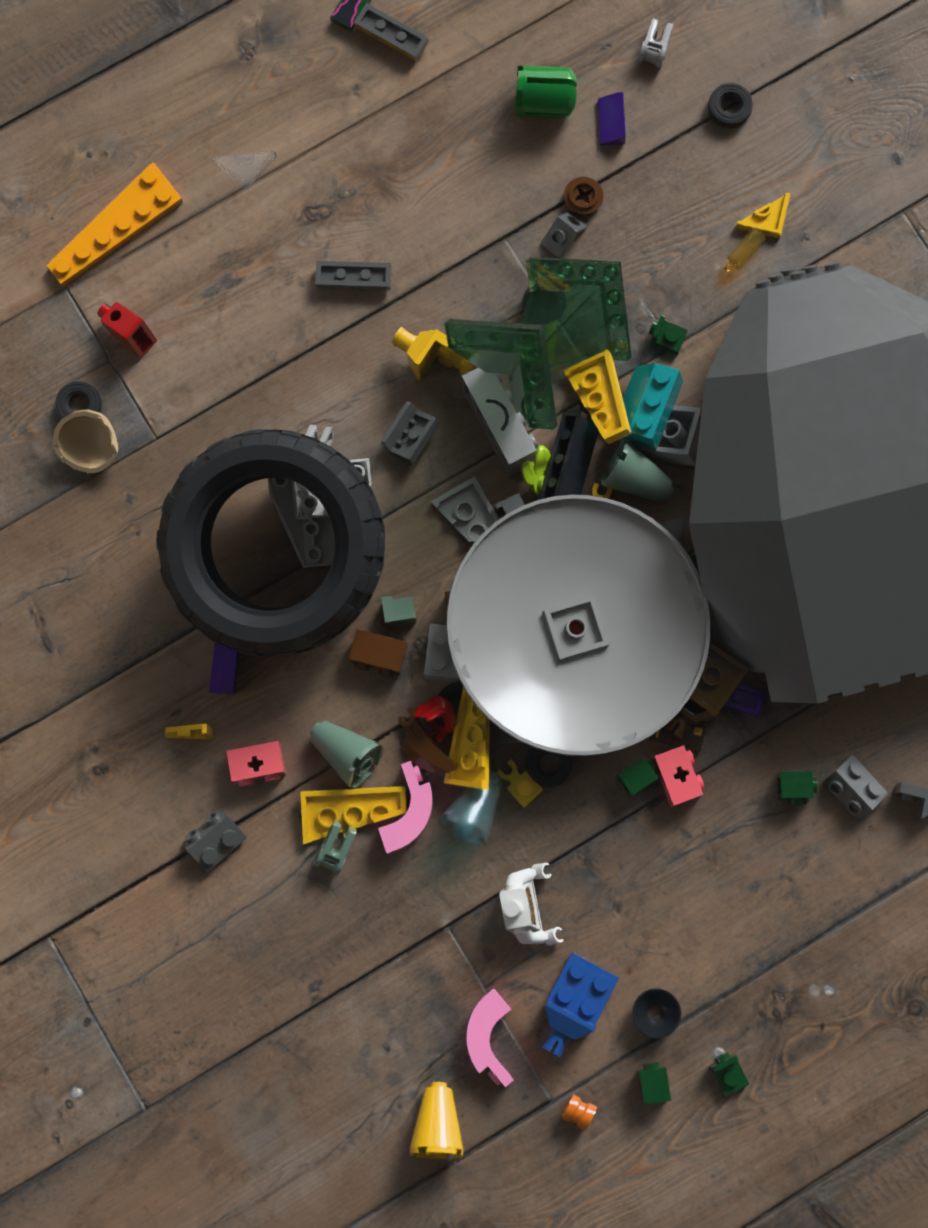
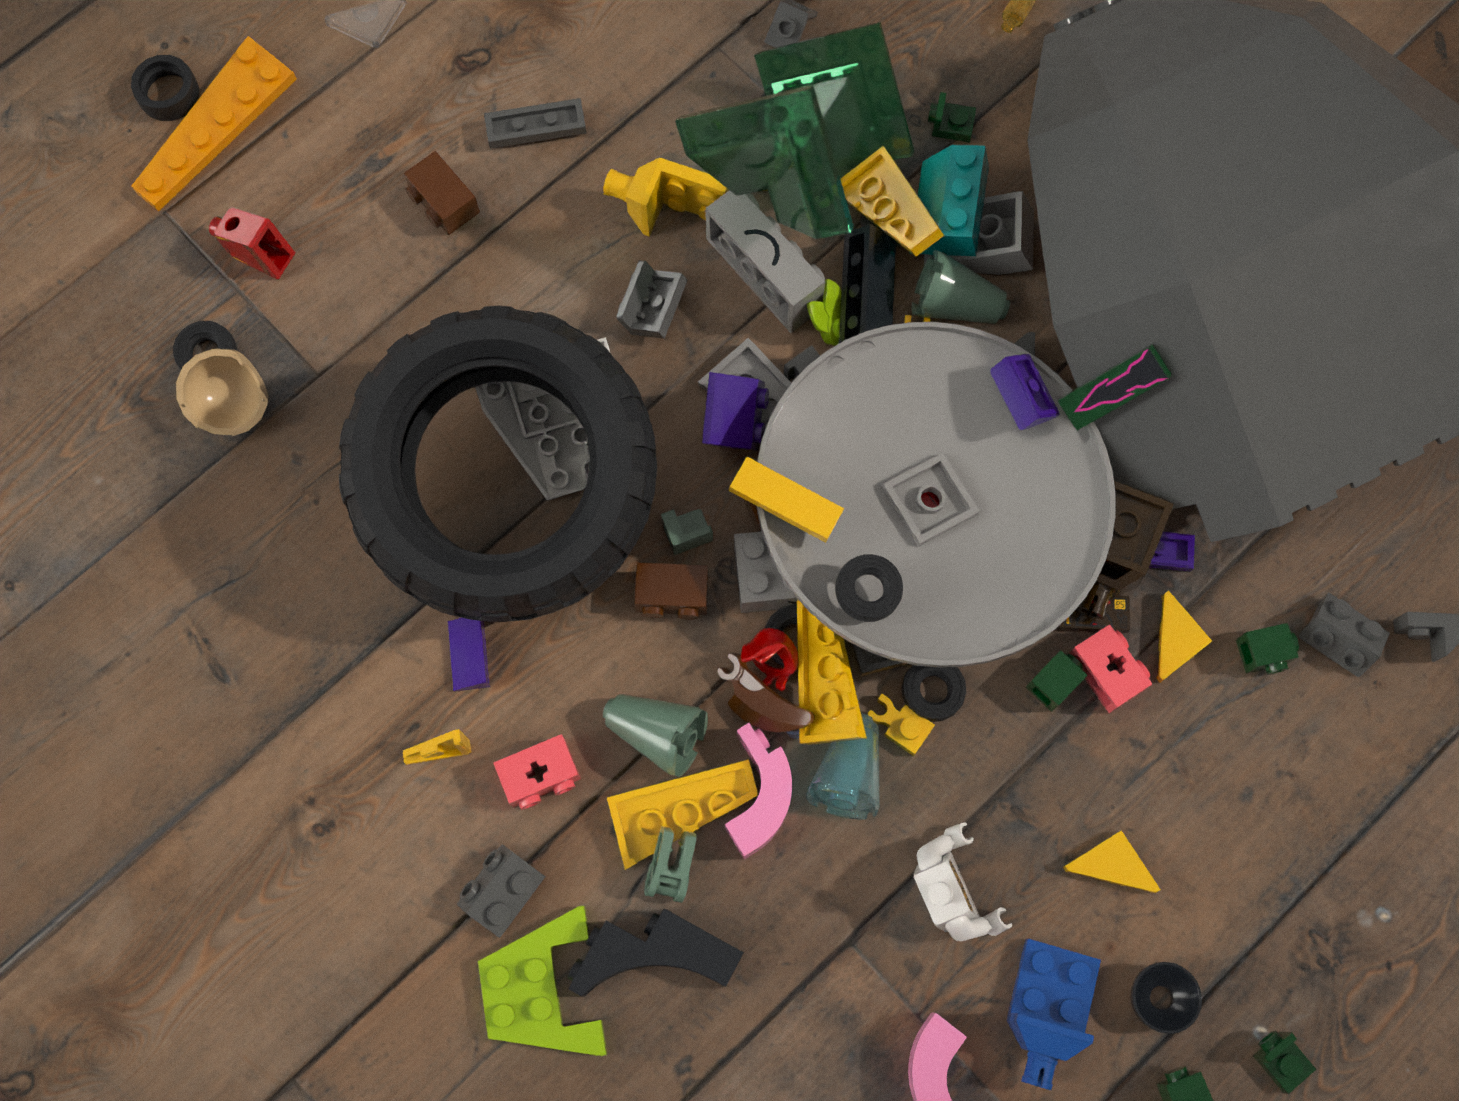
camera: 15 degrees left, 5 degrees down
(74, 176) = (158, 67): none -> black tyre
(215, 913) = (523, 991): none -> lime wing
(272, 317) = (441, 193): none -> reddish brown brick
(322, 901) = (670, 944): none -> black arch
(450, 533) = (734, 411): none -> dark purple slope
(468, 610) = (786, 499): none -> yellow tile
(528, 686) = (869, 565): none -> black tyre
(646, 913) = (1114, 863): none -> yellow tile
(660, 564) = (1024, 391): none -> dark purple slope
(721, 578) = (1114, 387): none -> tile
(734, 765) = (1178, 637): none -> yellow tile

